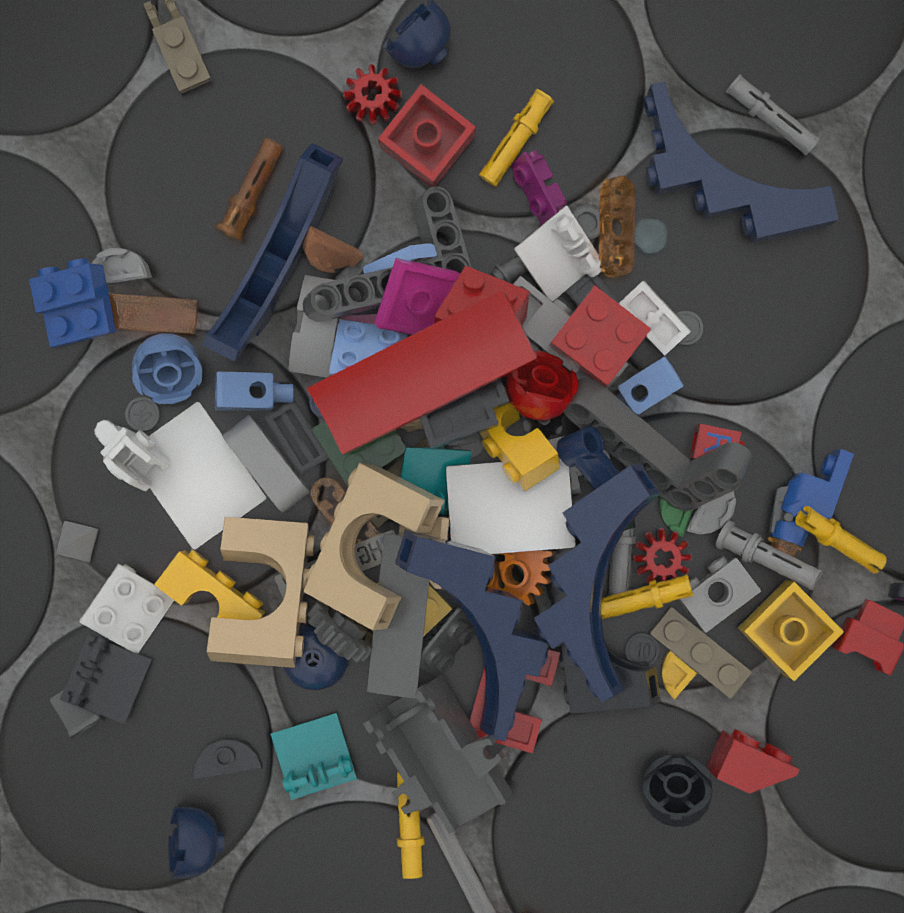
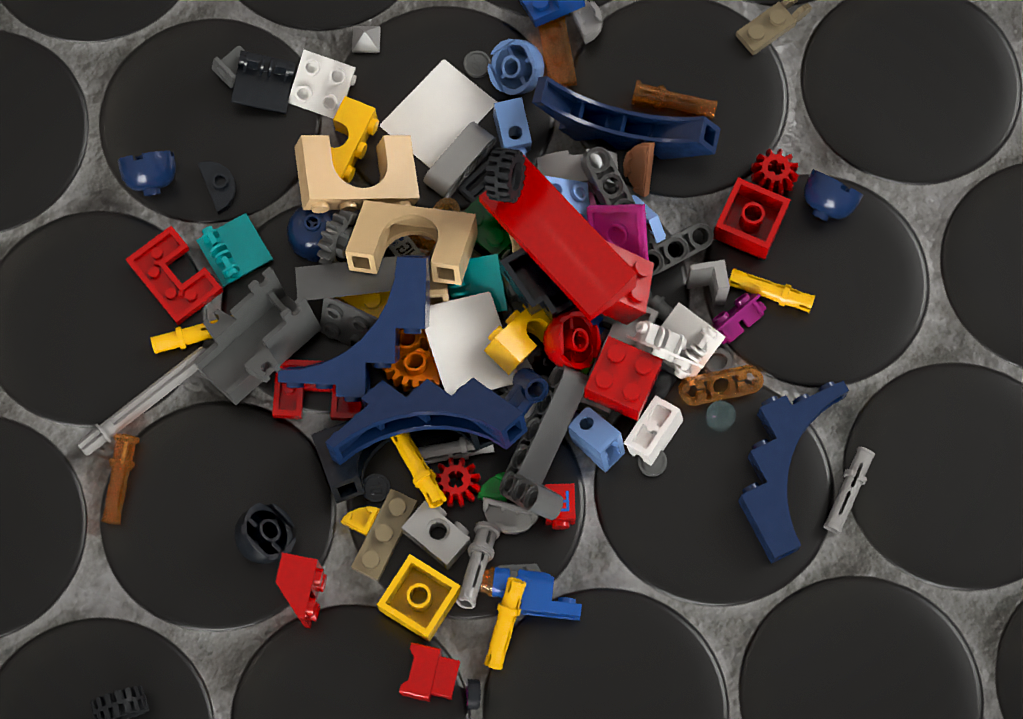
camera: 80 degrees right, 15 degrees down
(129, 454) = (441, 57): white hinge -> none
(316, 859) = (152, 268): none -> red plate
(334, 417) = (505, 175): none -> black tyre
(497, 196) = (711, 274): none -> light grey panel
(569, 281) = (662, 342): none -> white hinge

